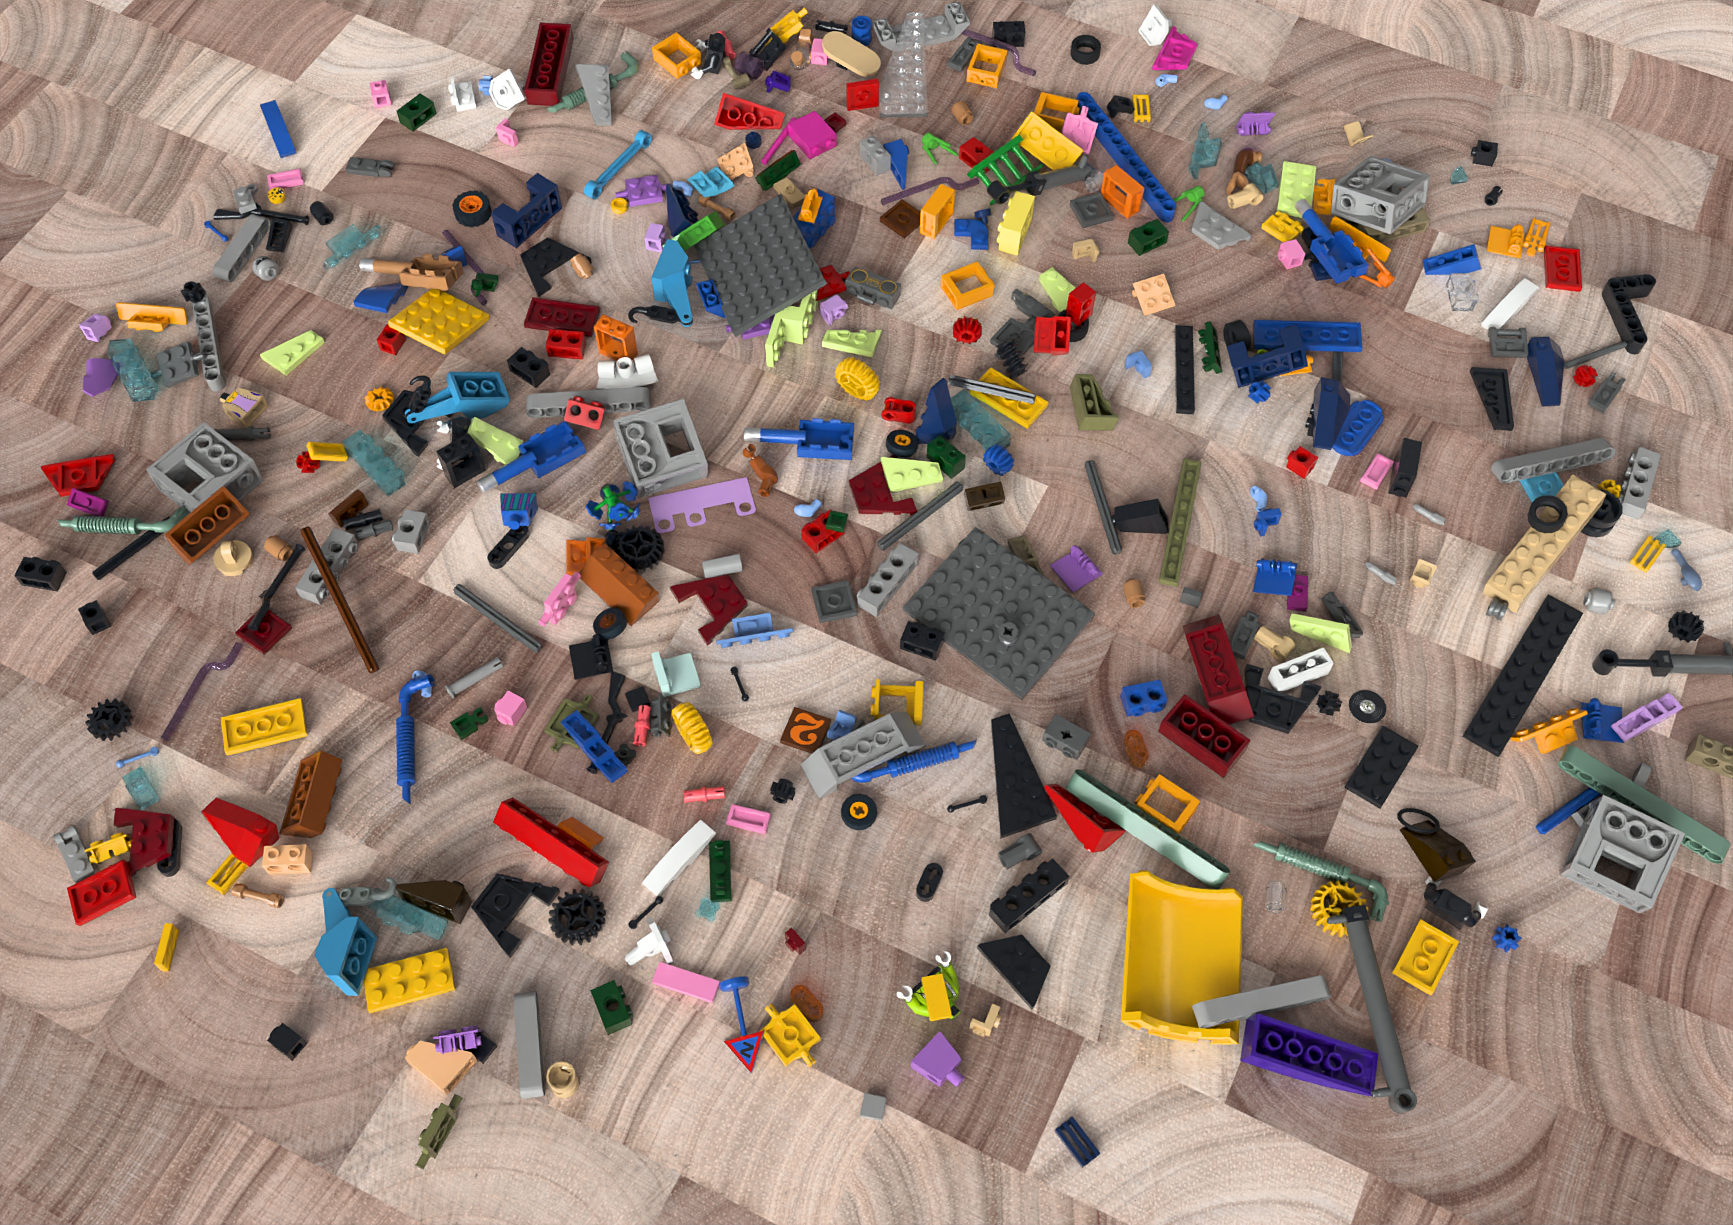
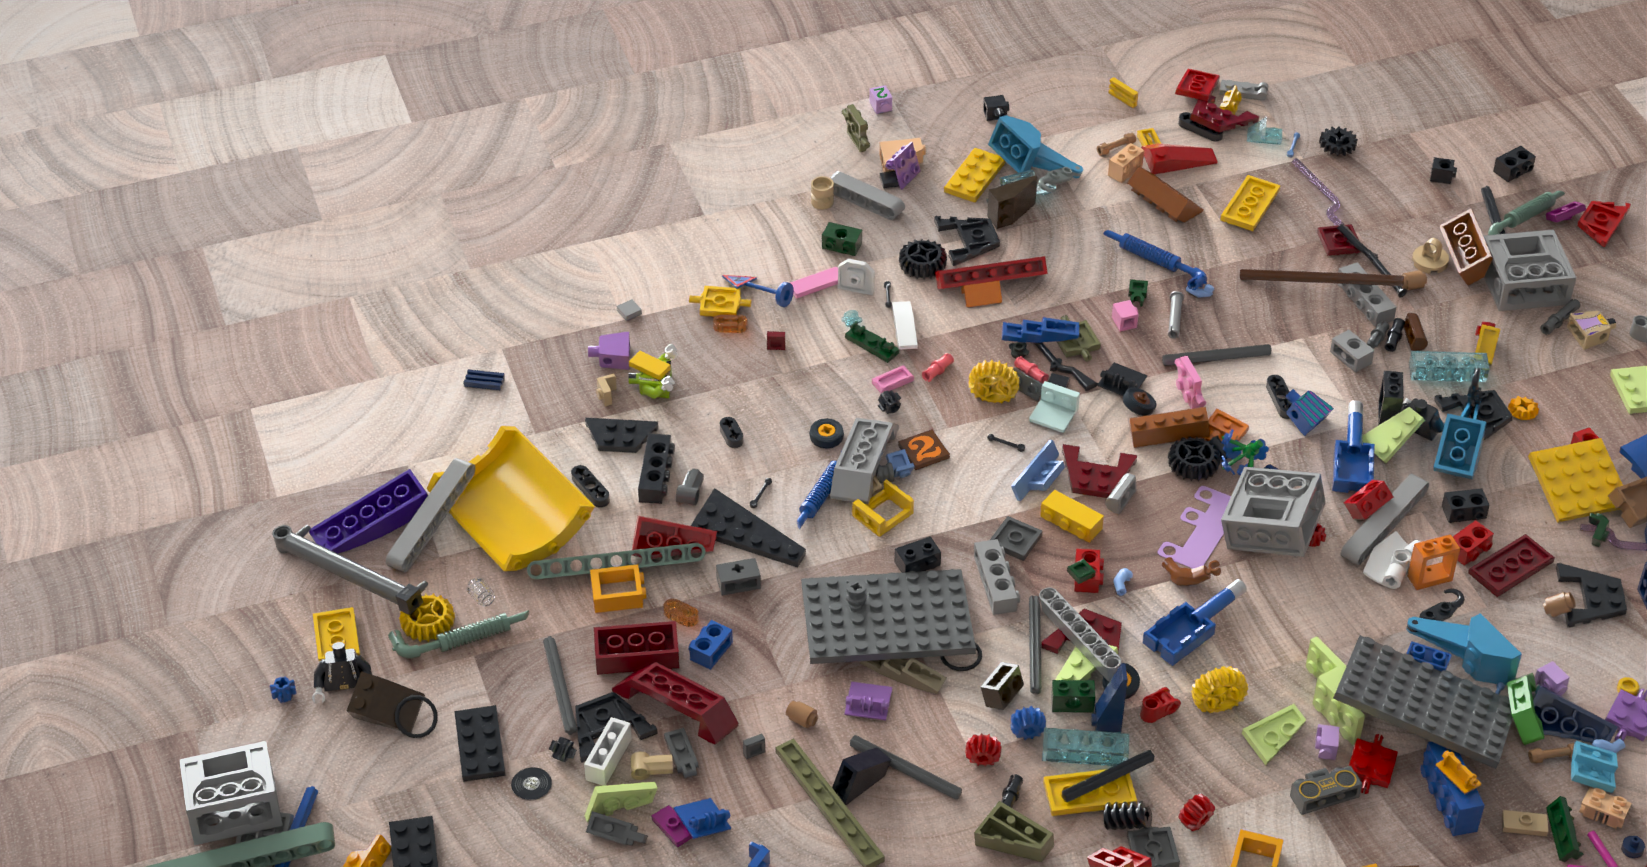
camera: 135 degrees right, 15 degrees down
(361, 1160) = (880, 99): none -> lavender brick
(780, 578) = (1072, 516): none -> yellow brick
(896, 471) = (1080, 632): none -> light grey beam
(1047, 467) = (983, 749): none -> red gear
(1059, 434) = (1011, 792): none -> black pin
(1086, 943) = (591, 493): none -> black beam
(1281, 764) = (560, 685): none -> dark grey axle

